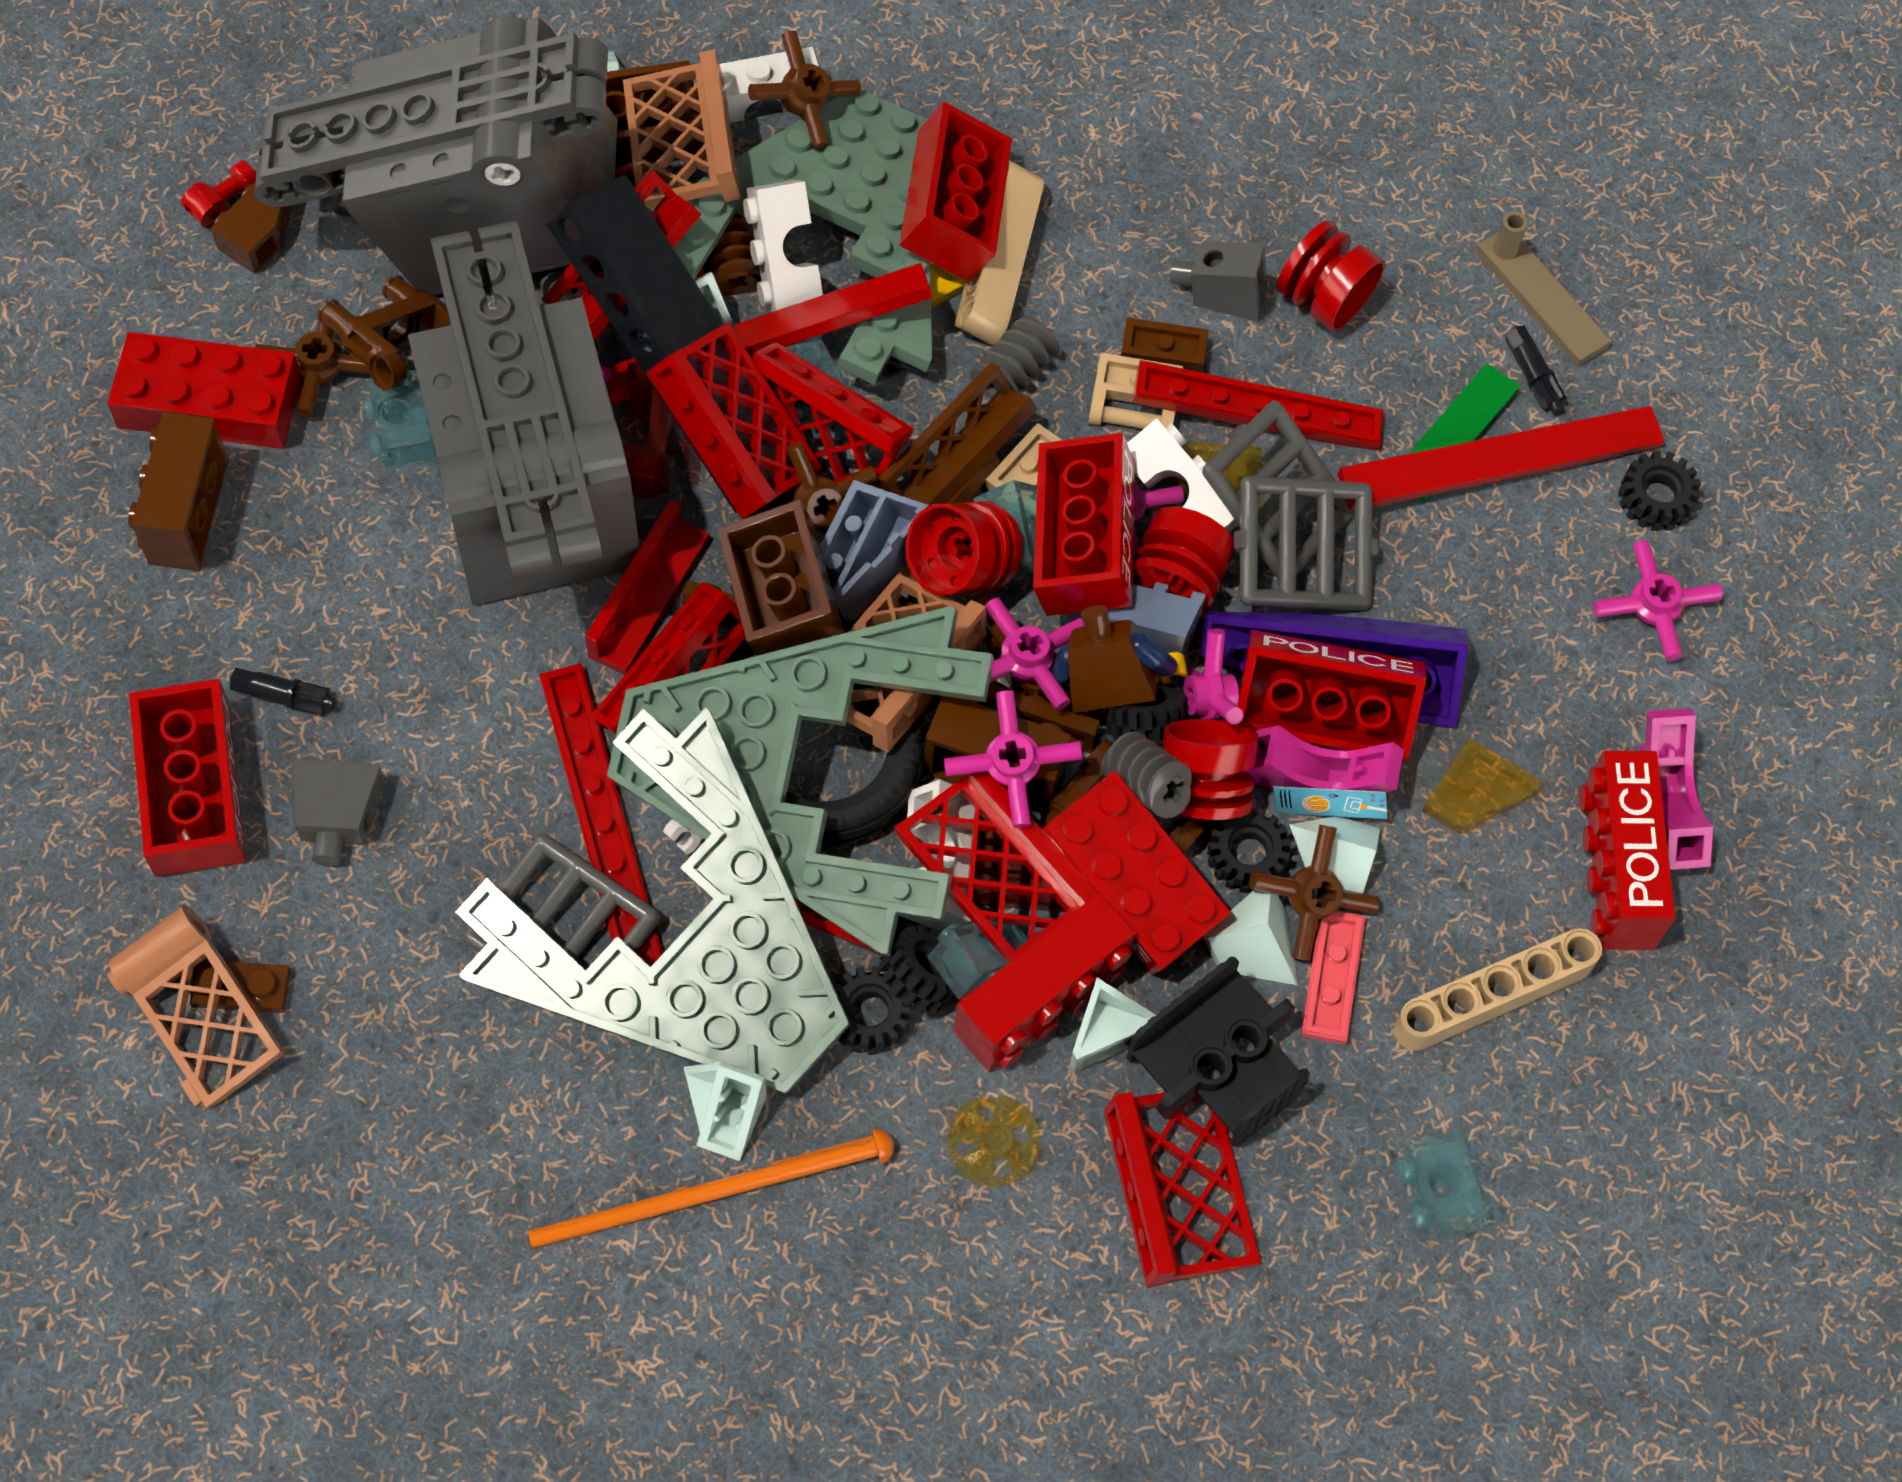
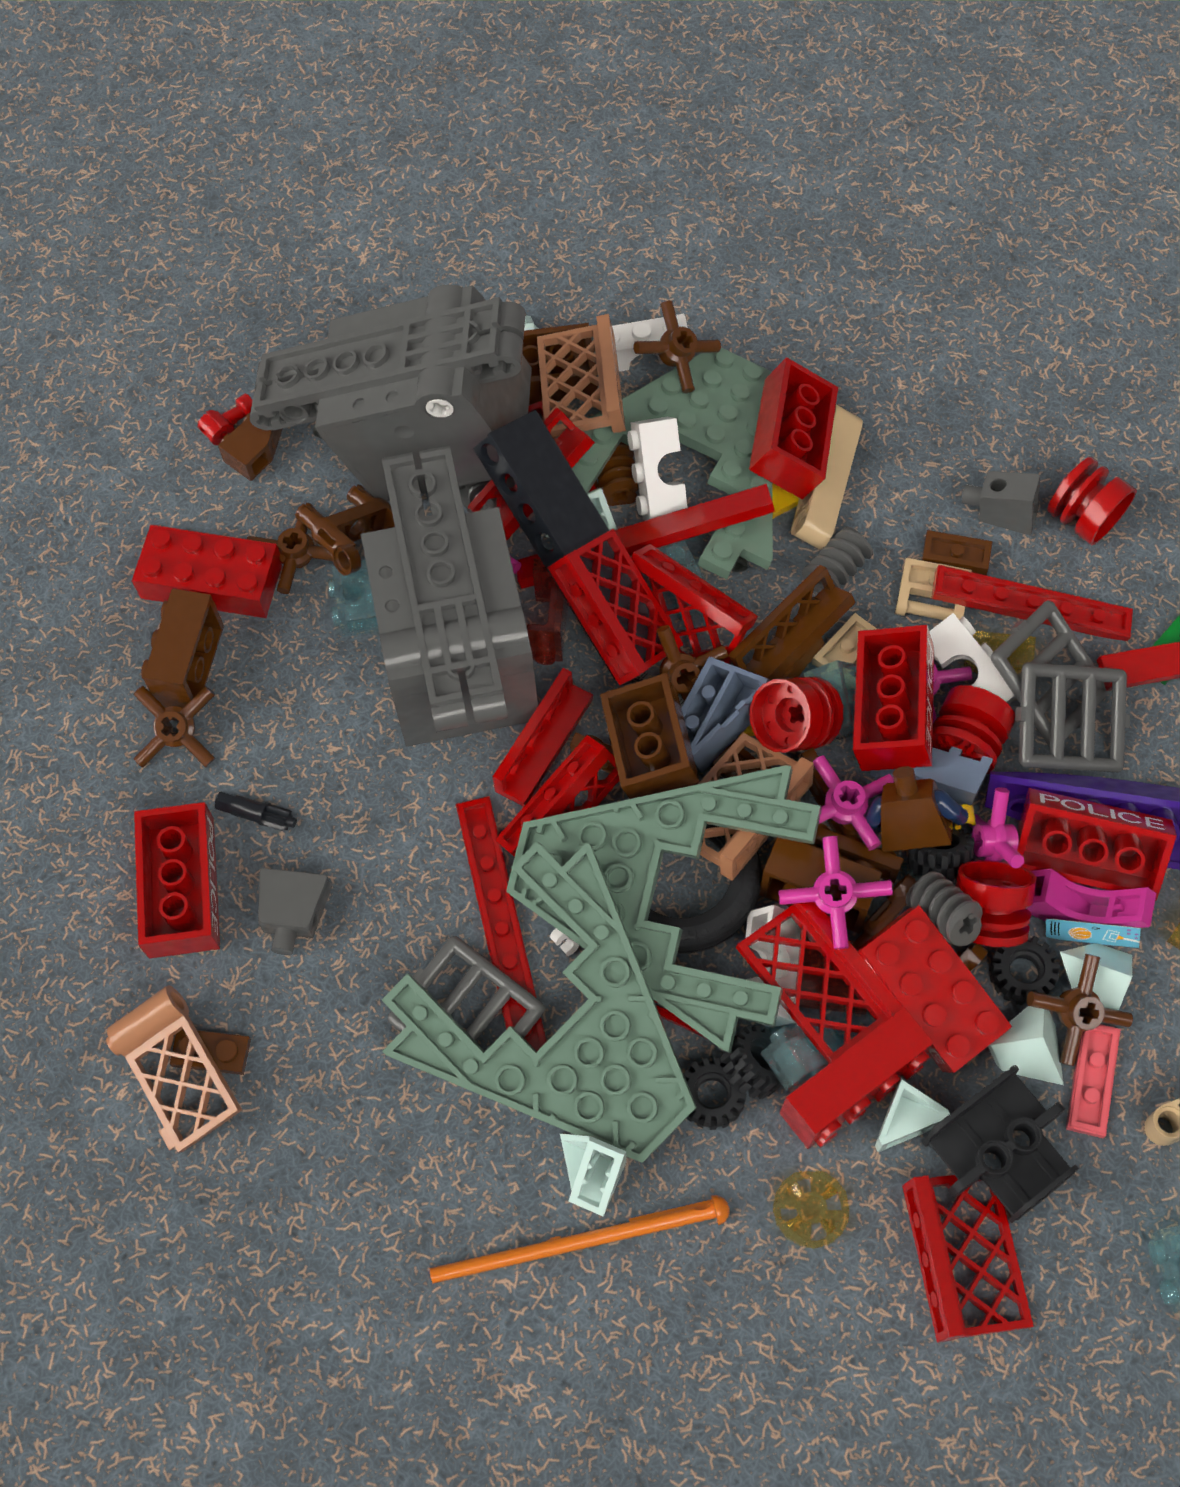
camera: 10 degrees right, 0 degrees up
(156, 589) = (163, 726): none -> reddish brown bar

